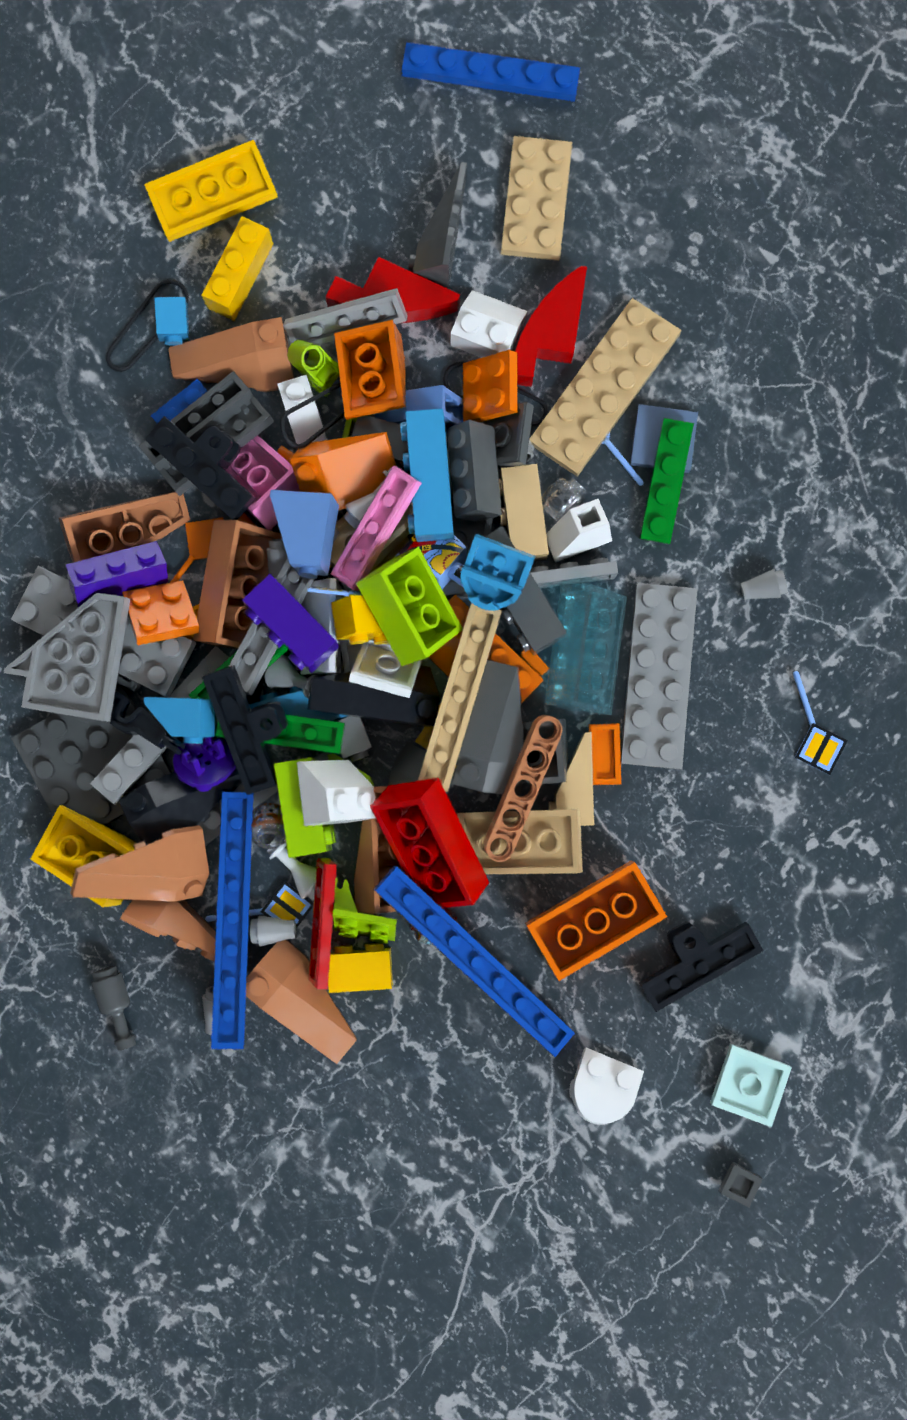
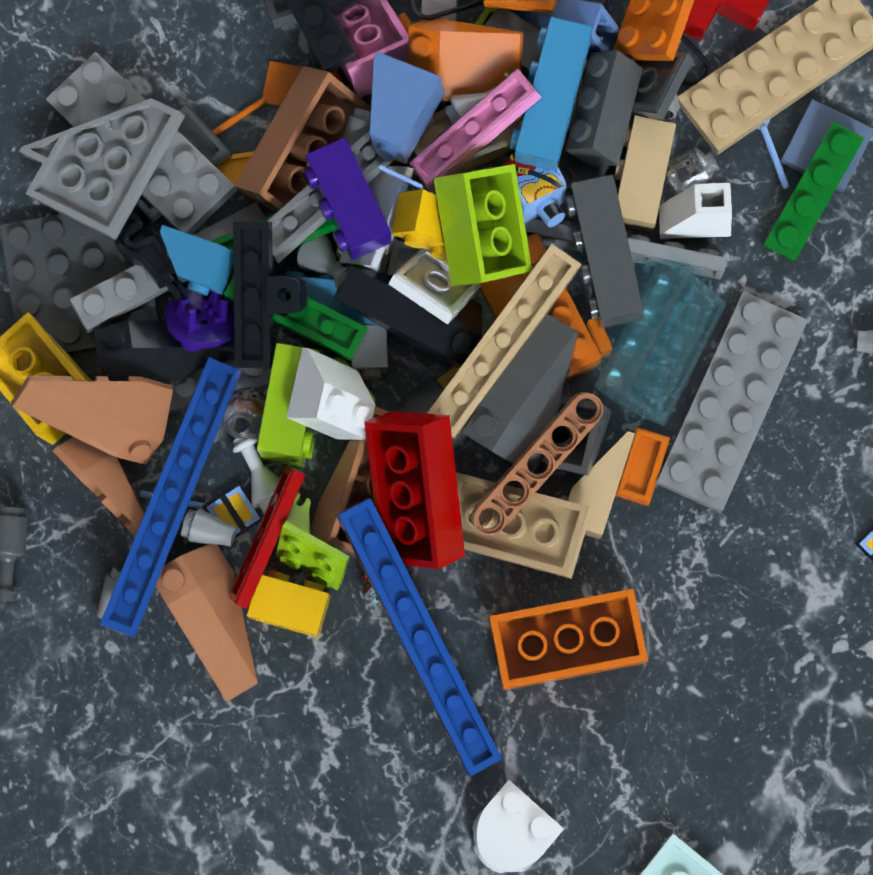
camera: 20 degrees right, 5 degrees down
(117, 572) = (191, 88): dark purple brick -> none
(122, 525) = (191, 45): nougat wedge -> none
(161, 612) = (212, 144): orange plate -> none
(494, 573) = (587, 220): dark azure slope -> none
(698, 961) = (667, 729): black plate -> none

